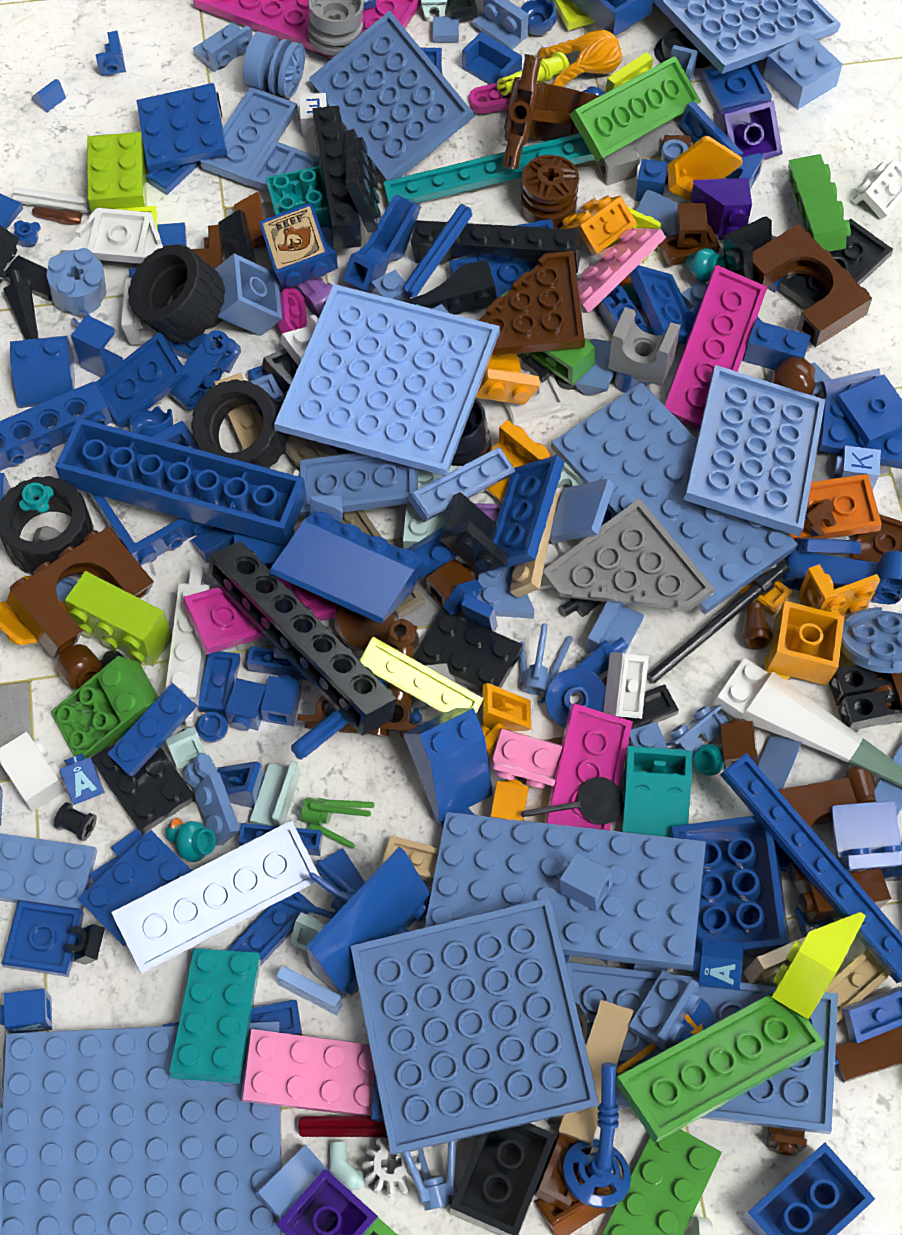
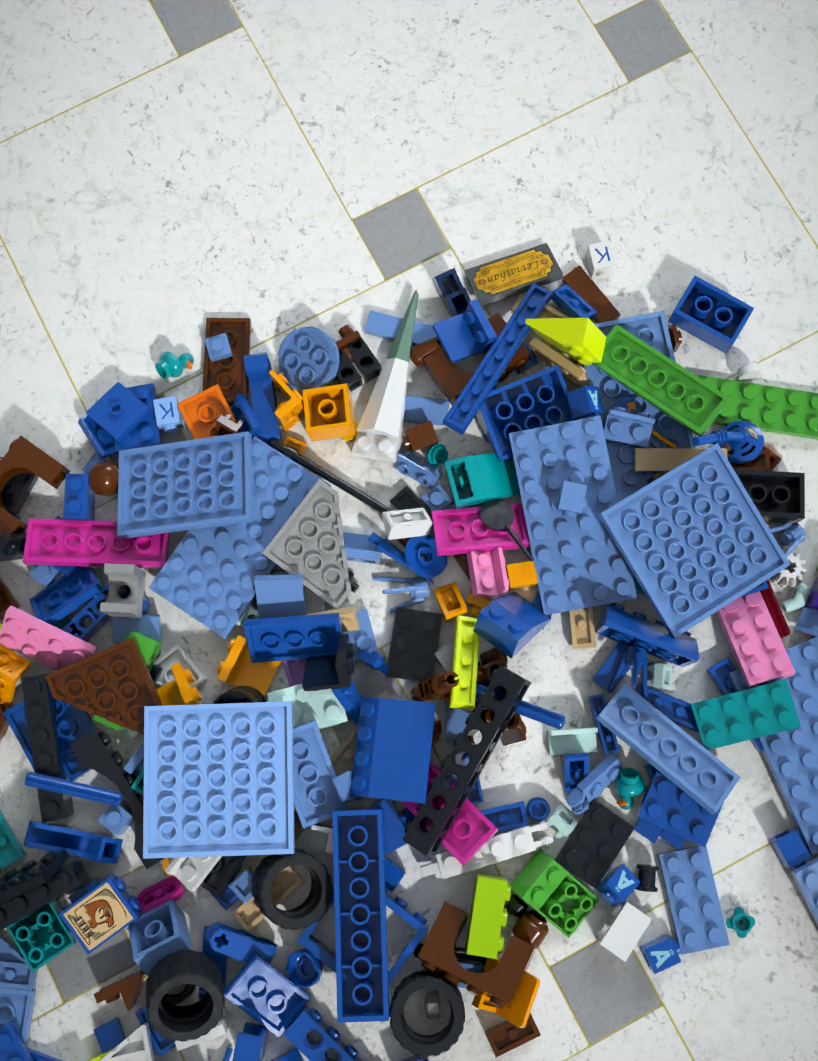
camera: 105 degrees left, 15 degrees up
(32, 491) = (418, 1032): teal plate -> none
(39, 938) = (736, 862): blue plate -> none
(88, 943) = (728, 827): black tile -> none
(152, 729) = (565, 847): blue plate -> none
(236, 236) = (104, 971): black tile -> none
(245, 705) = (514, 789): blue brick -> none
(253, 210) = (75, 971): dark orange slope -> none
(281, 700) = (501, 765): blue brick -> none
(309, 990) = (698, 669): light blue tile -> none
(315, 294) = (137, 877): medium lavender piece -> none
(320, 811) = (574, 705): bright green plant -> none
(446, 578) = (366, 676): reddish brown brick -> none
(468, 479) = (286, 689): medium blue tile -> none
(479, 612) = (387, 643): blue tile -> none
(703, 262) = (15, 575): teal animal -> none
(756, 627) = (325, 450): reddish brown cone -> none

